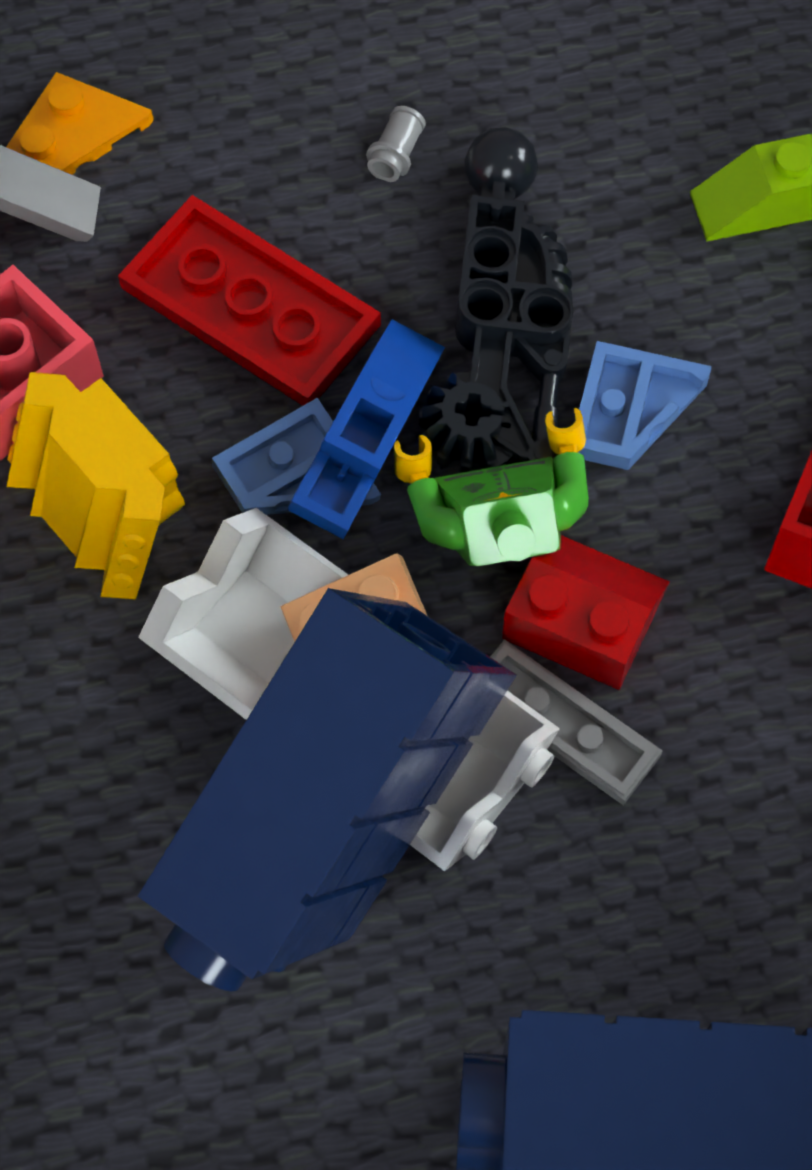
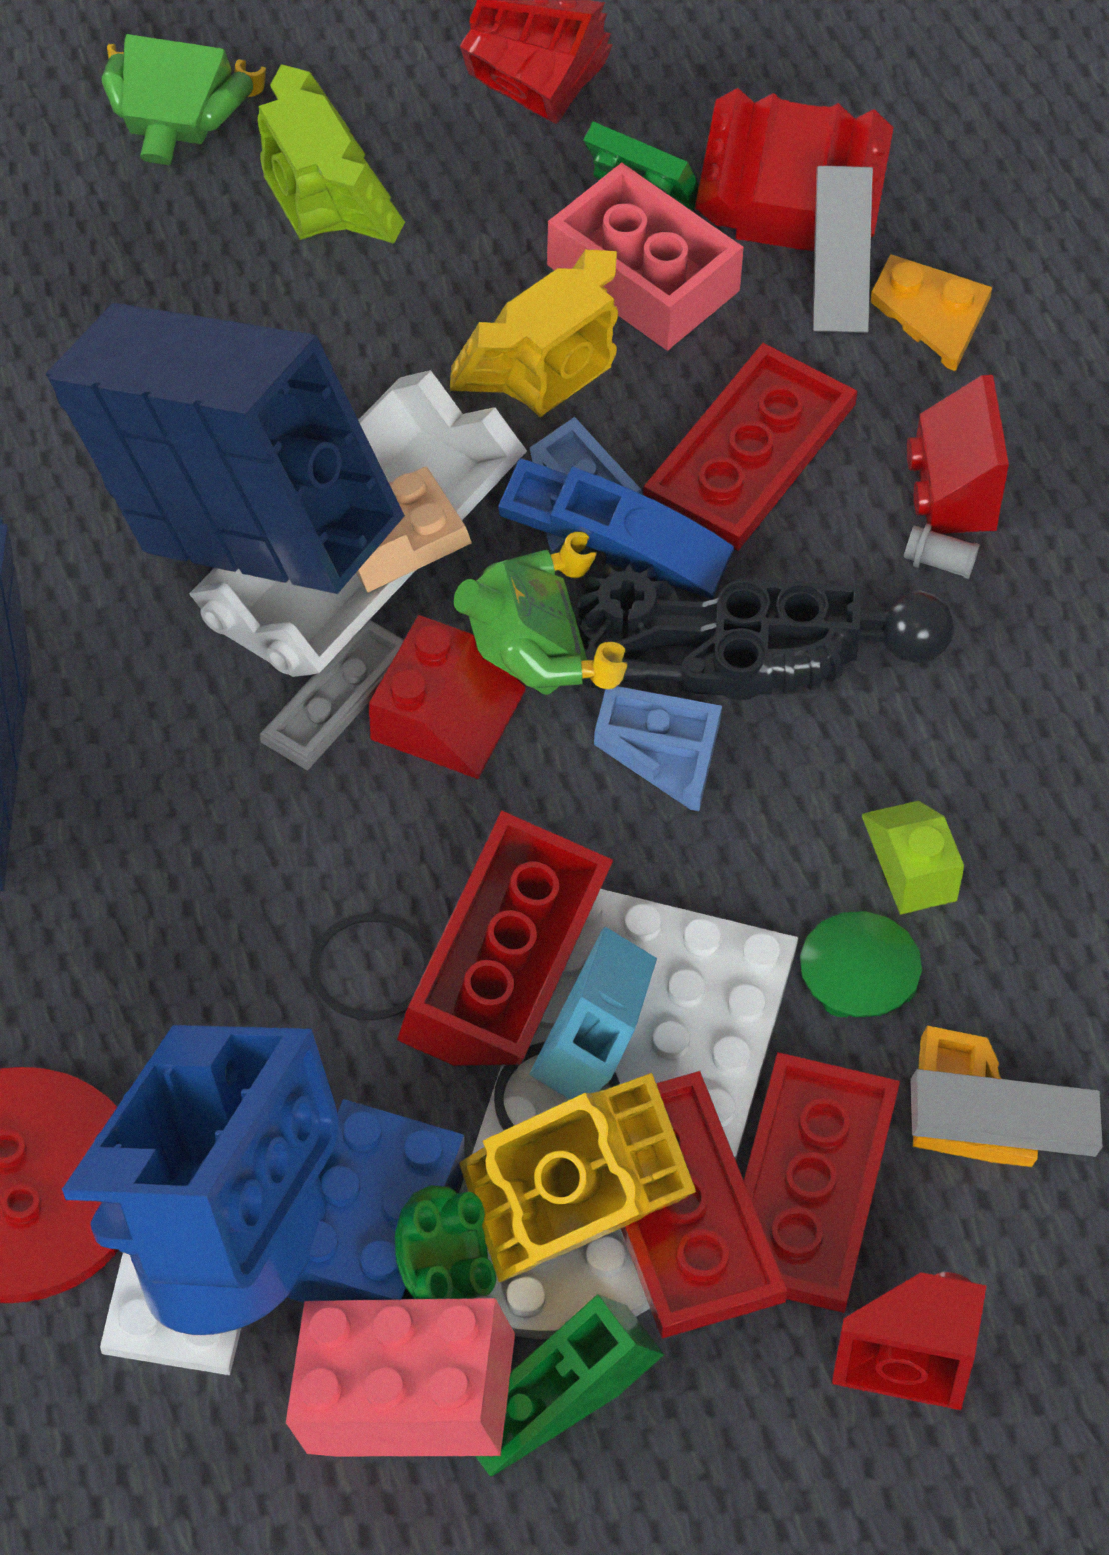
camera: 85 degrees right, 10 degrees down
(302, 99) = (960, 460): none -> red slope

